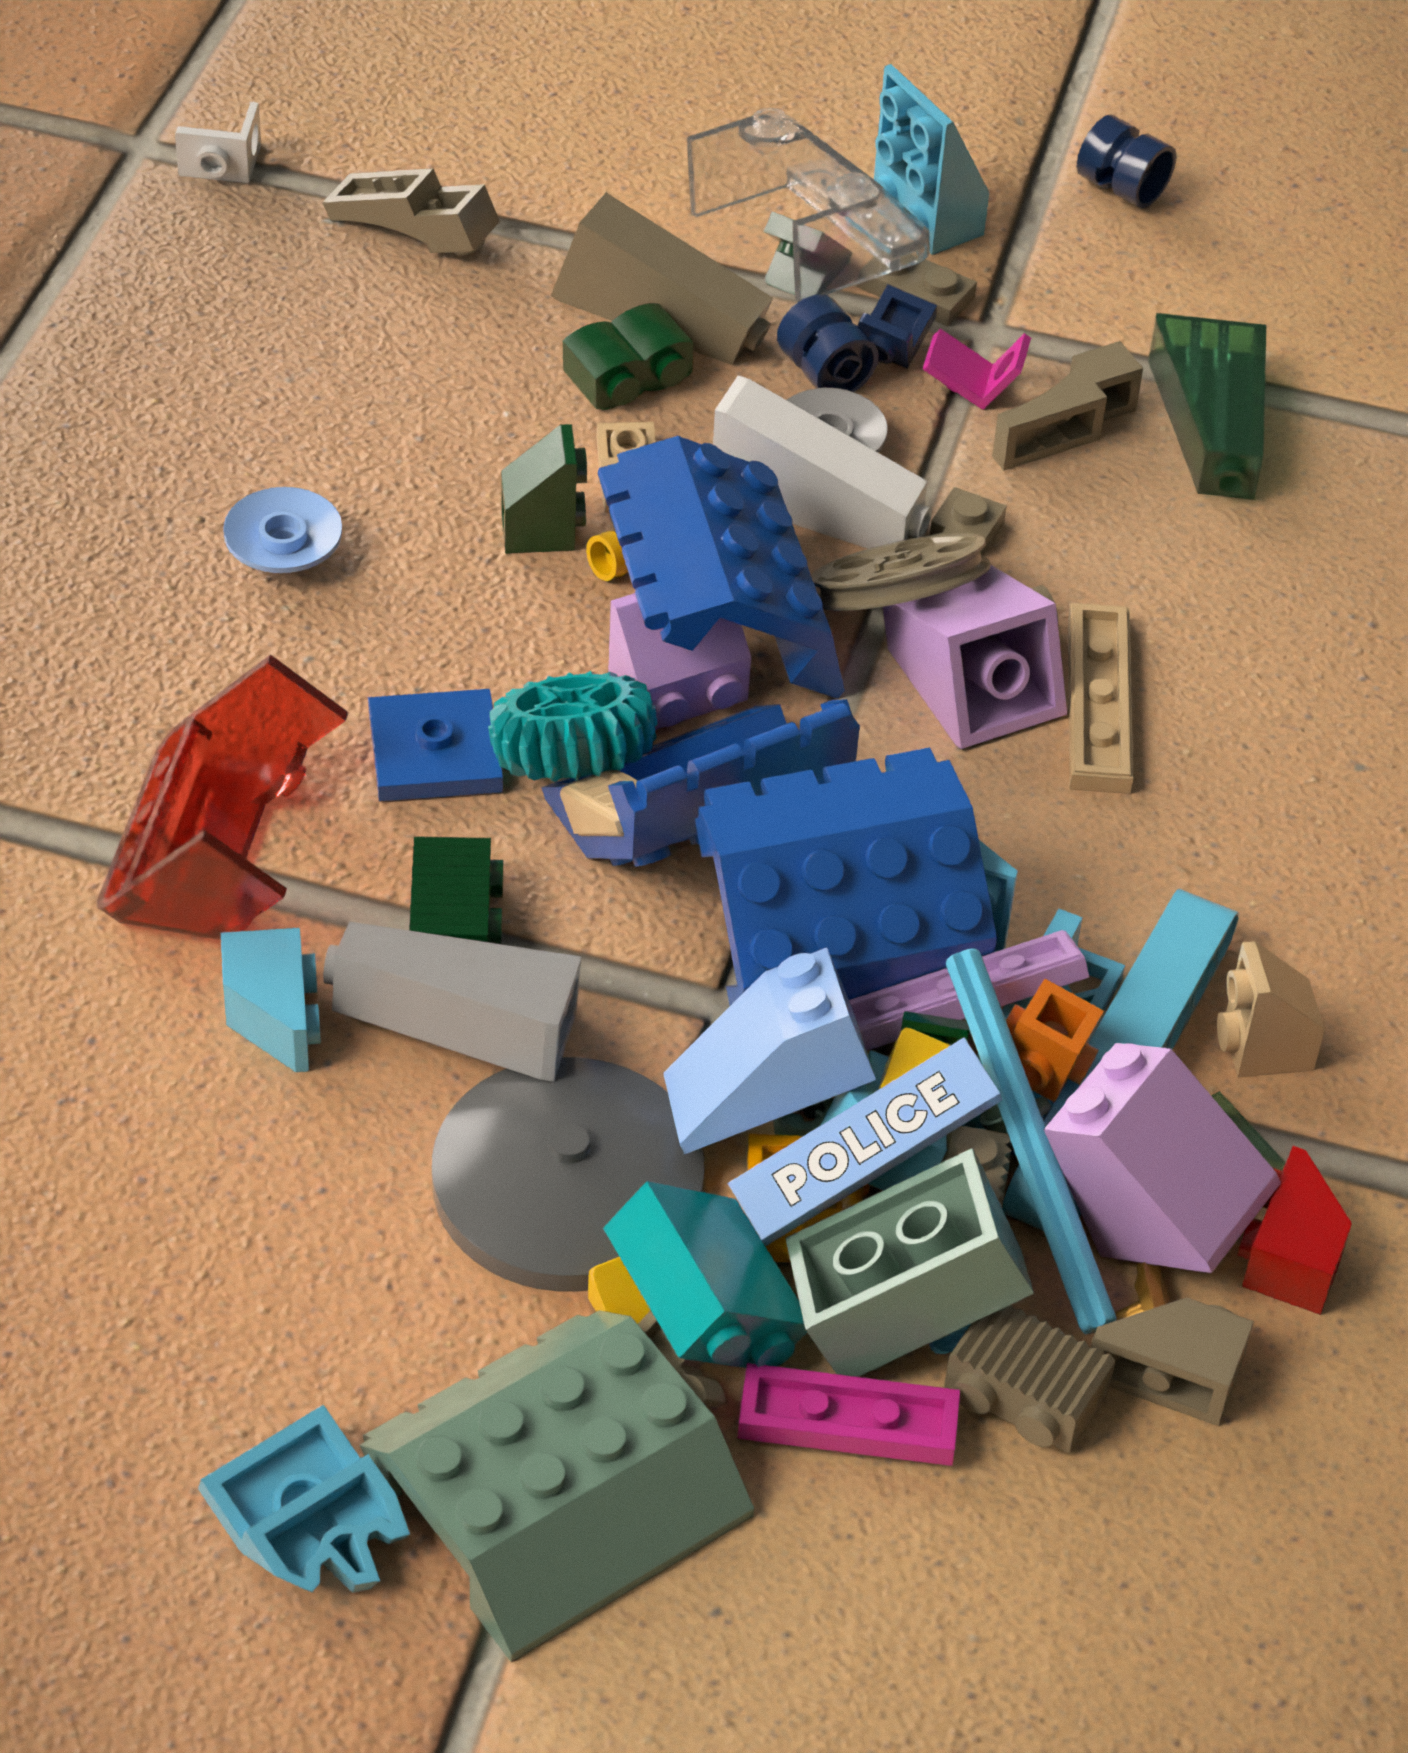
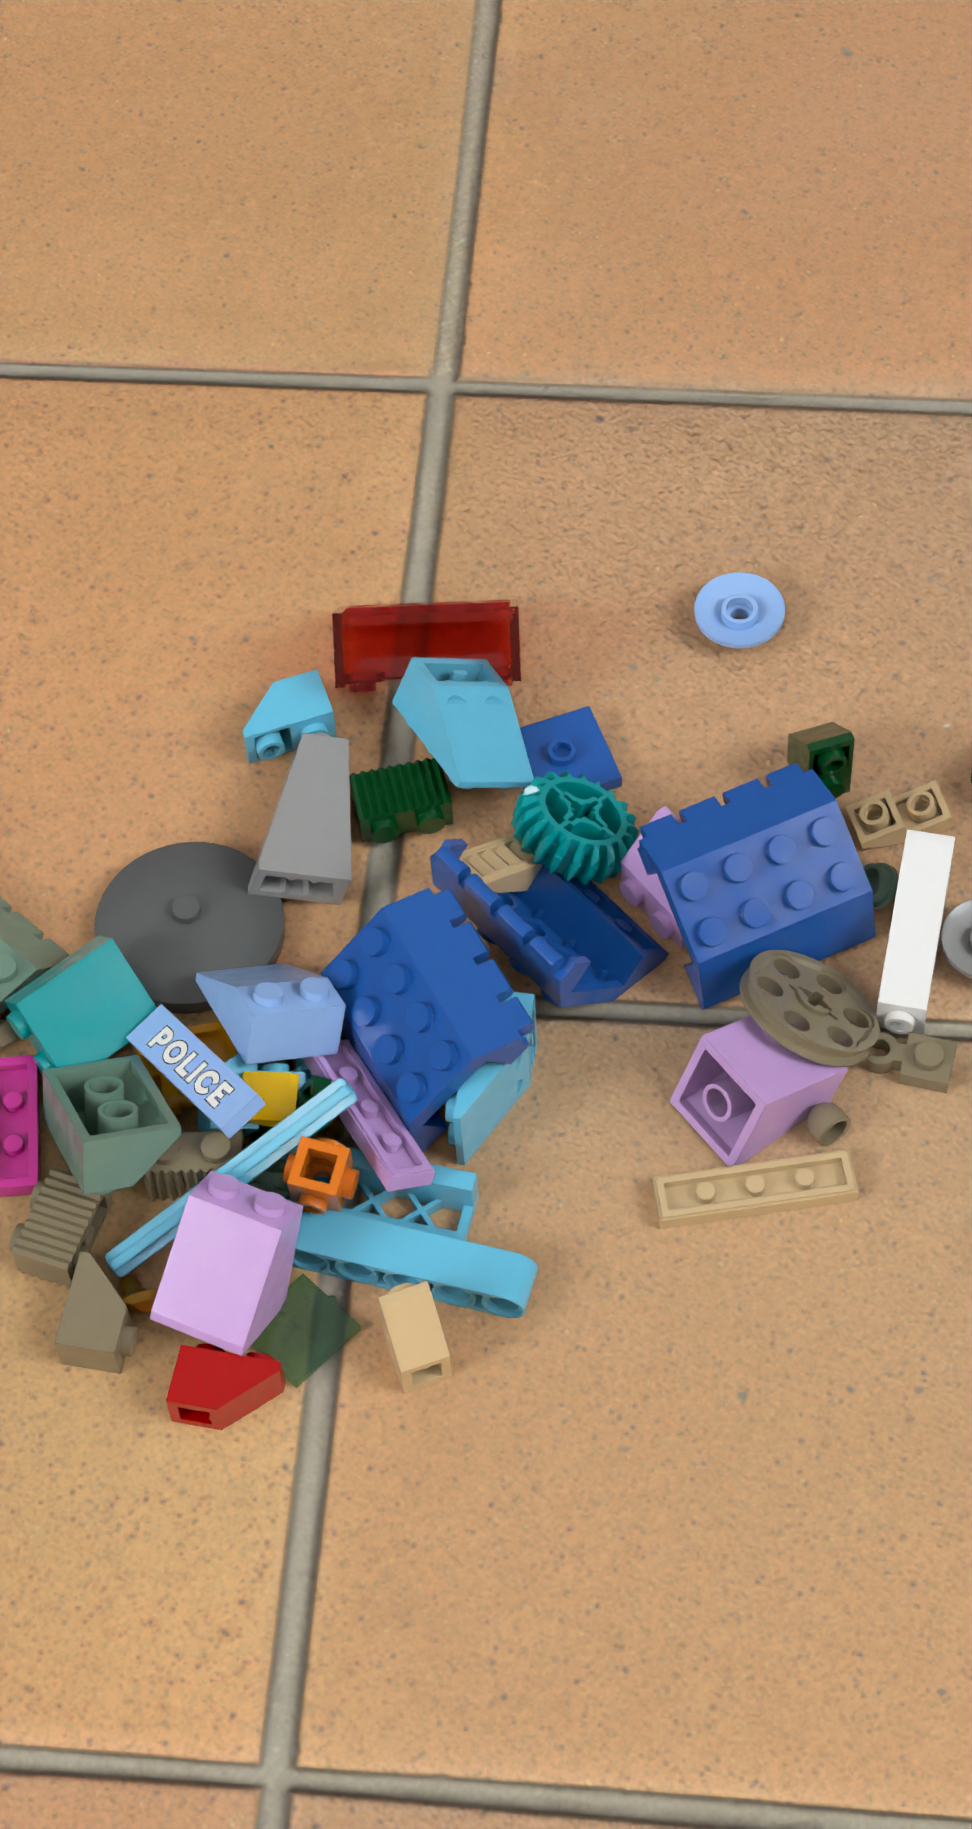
camera: 85 degrees right, 10 degrees up
(371, 793) = (465, 721): none -> medium azure slope

